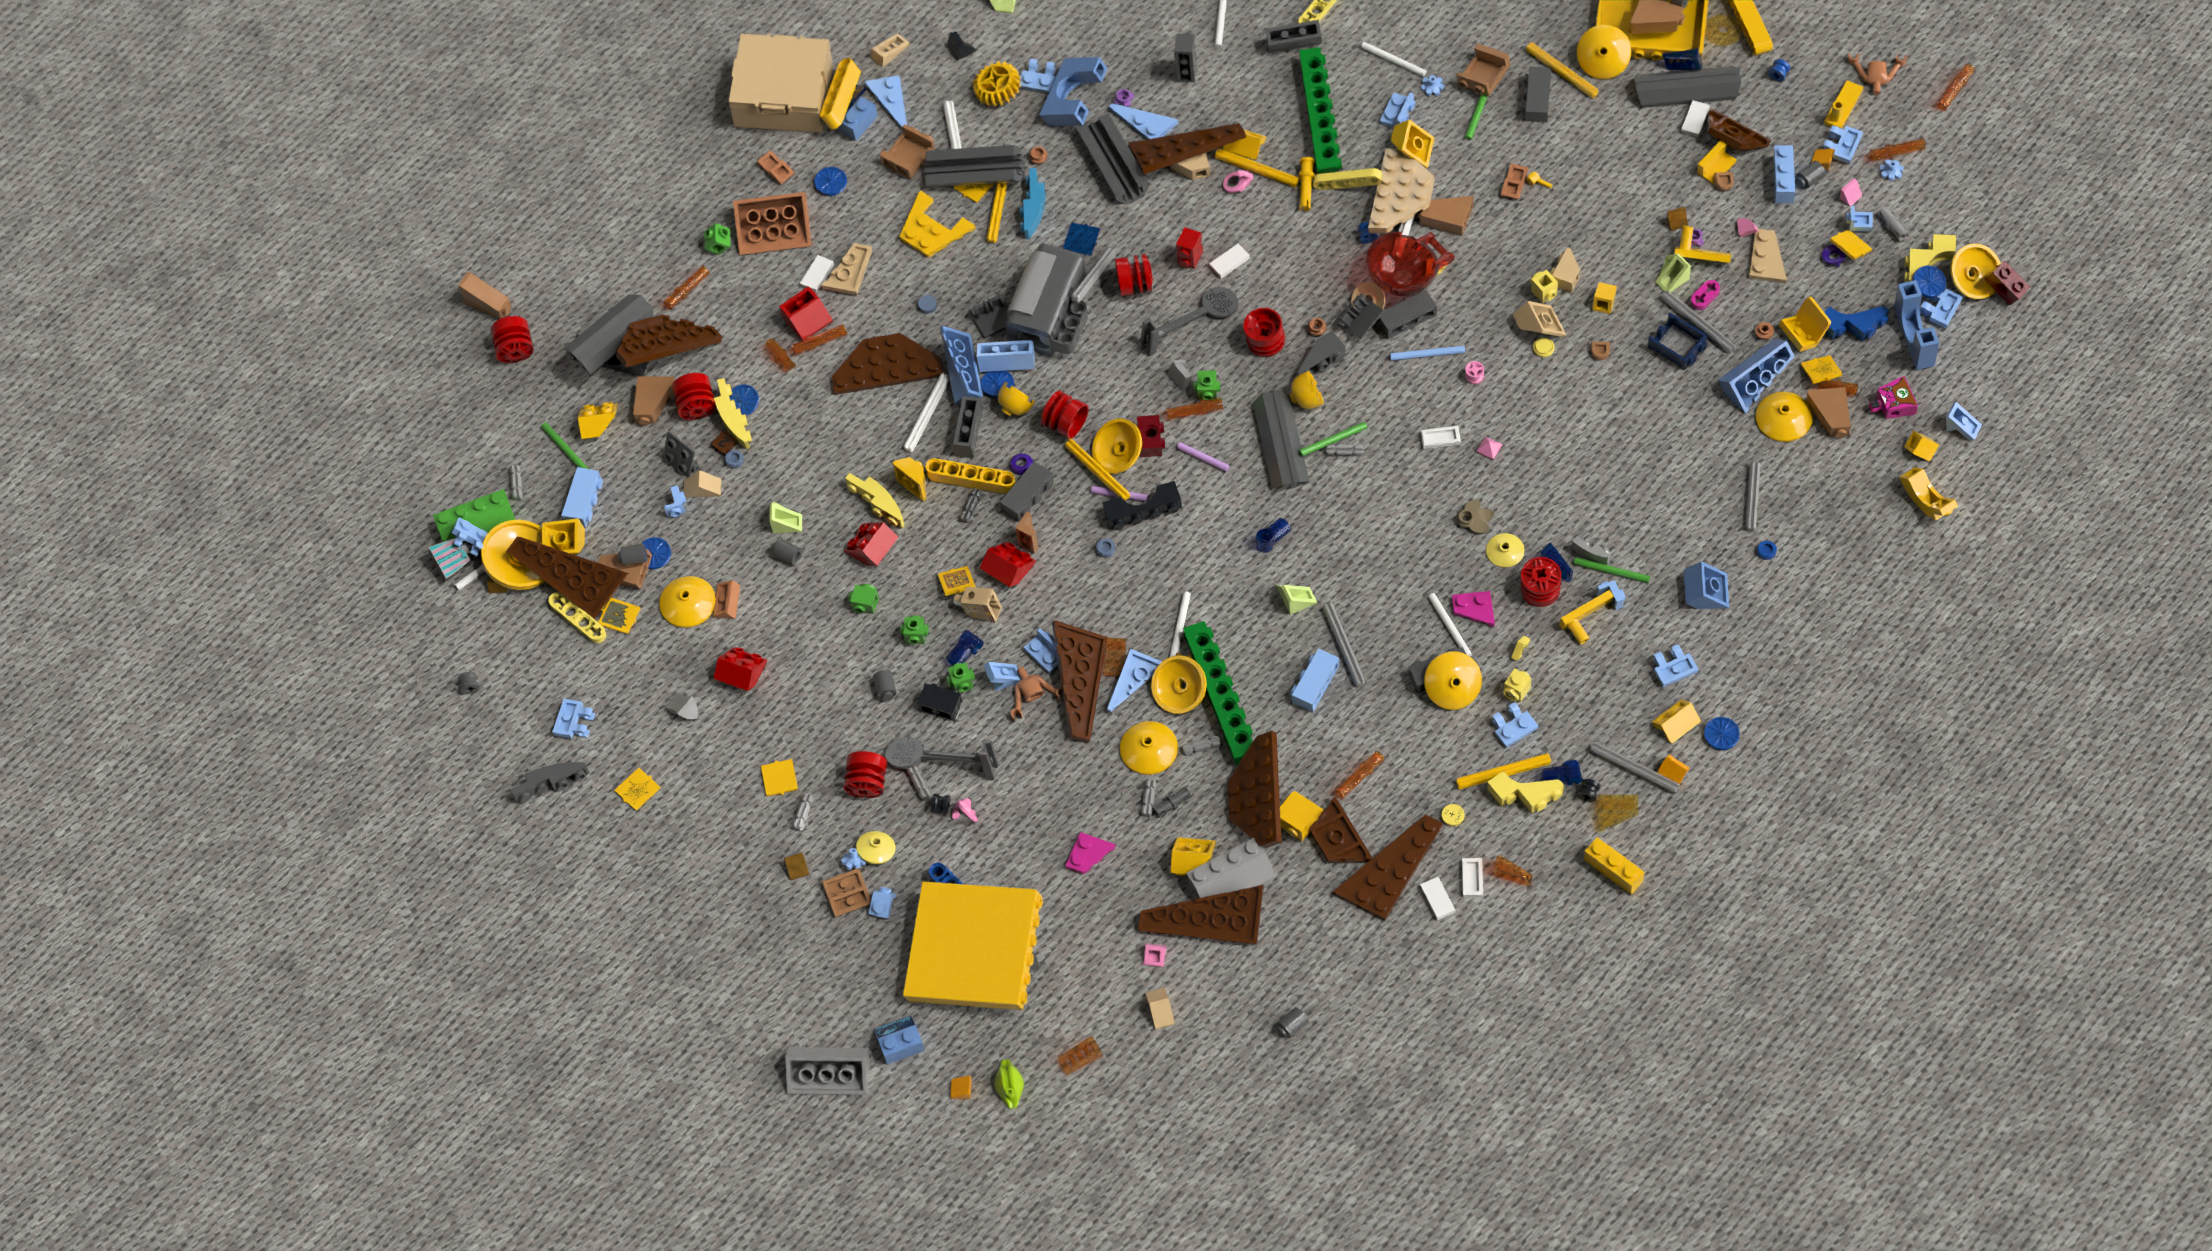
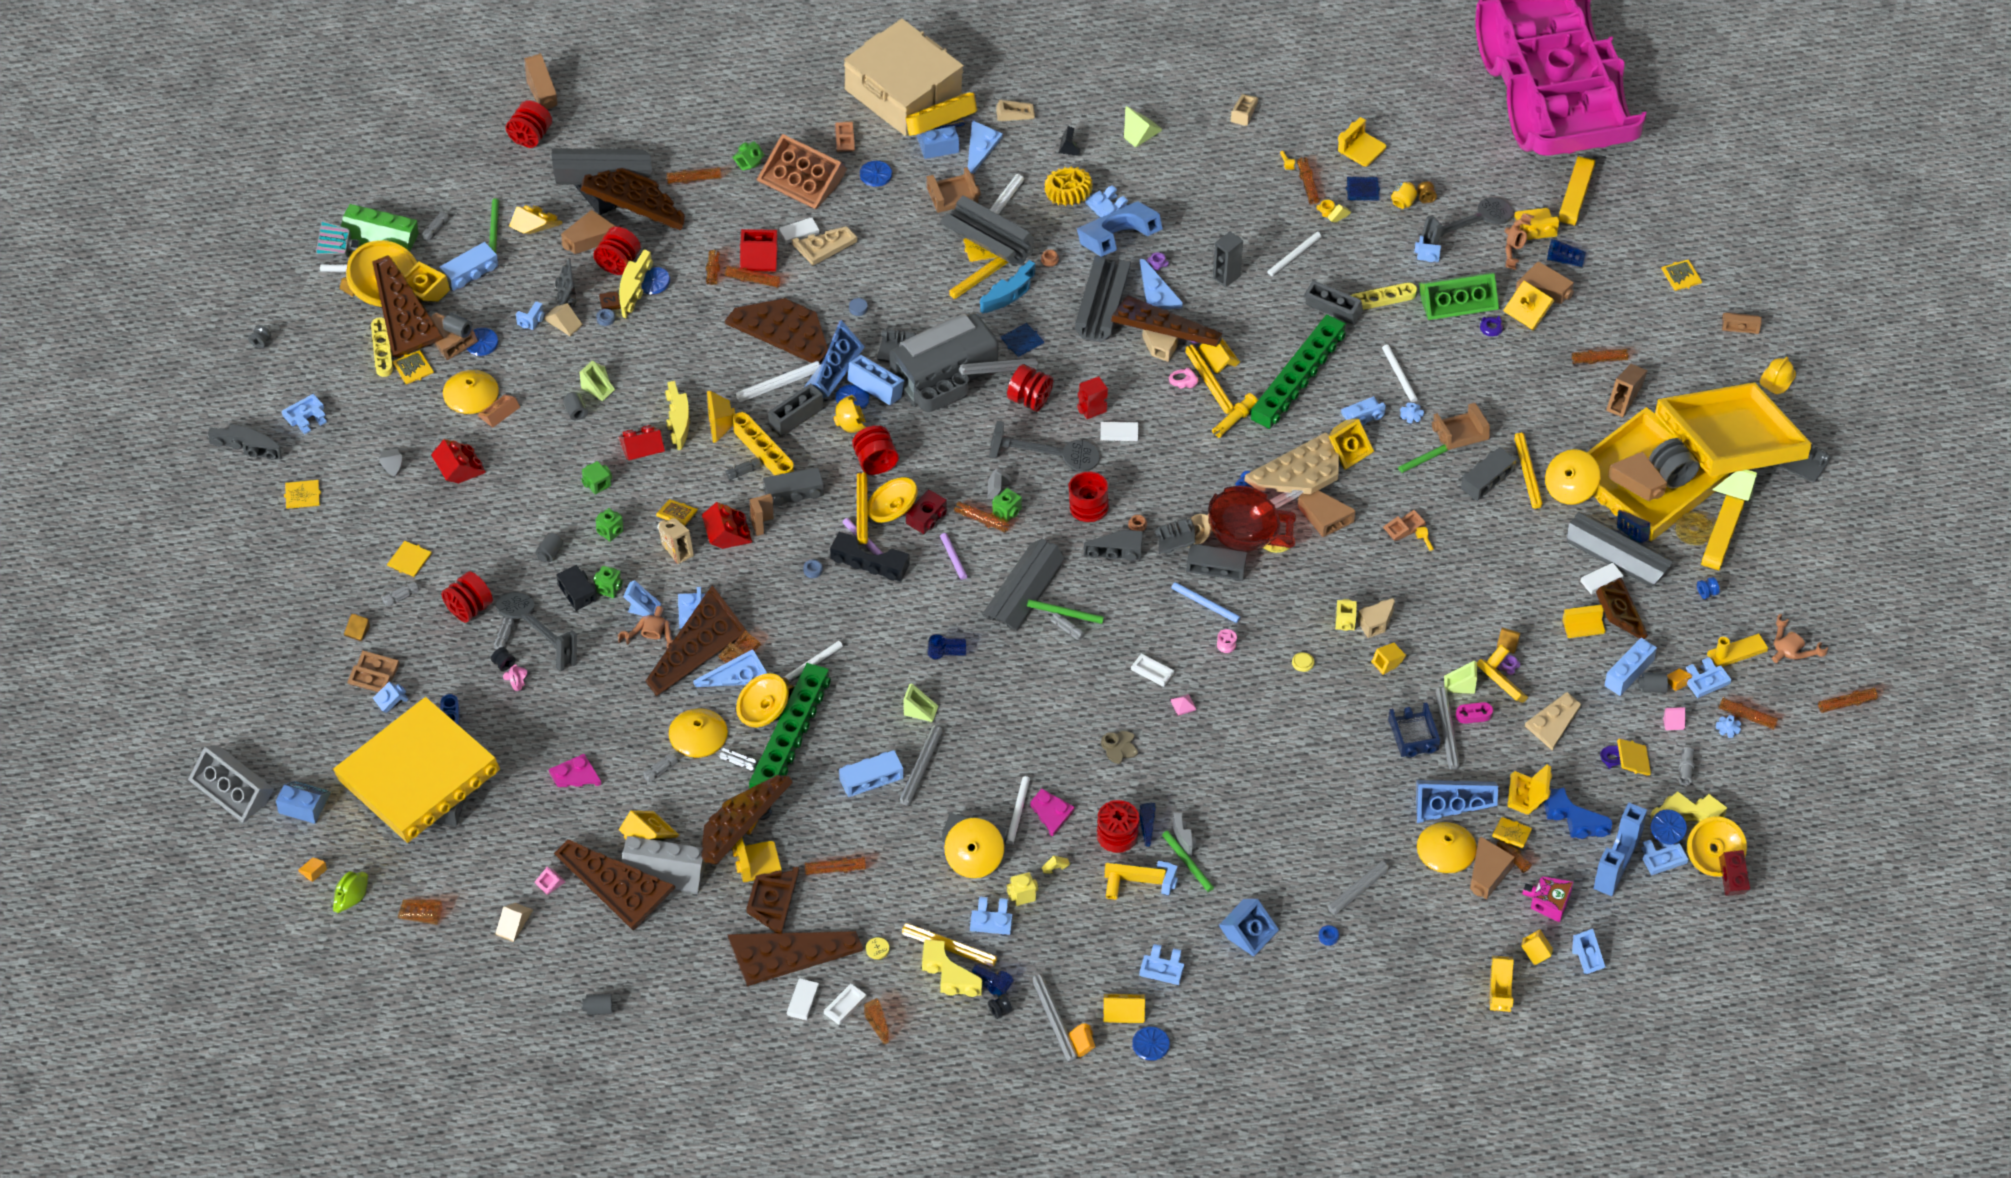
camera: 30 degrees right, 10 degrees down
(466, 531) = (360, 231): light blue plate -> none
(852, 859) = (401, 652): light blue plant -> none
(875, 847) = (426, 656): light yellow dish -> none
(927, 234) = (908, 256): yellow wing -> none
(967, 645) = (638, 563): clear blue piece -> none
(1020, 470) = (803, 463): dark purple piece -> none
(1172, 802) = (674, 782): dark grey pin -> none
(1305, 391) = (1079, 559): yellow cylinder -> none
(1347, 179) = (1268, 432): light yellow beam -> none
(1505, 557) = (1112, 791): light yellow dish -> none
(1538, 319) = (1318, 637): tan slope -> none
(1600, 350) = (1346, 695): medium nougat tile -> none
(1614, 865) = (961, 1075): yellow brick -> none
(1615, 809) = (1008, 1037): clear yellow wing -> none
(1723, 180) = (1577, 639): medium nougat tile -> none
(1746, 227) = (1559, 685): bright pink tile -> none
(1762, 334) = (1493, 776): nougat plate -> none
(1859, 220) = (1659, 744): light blue bracket -> none

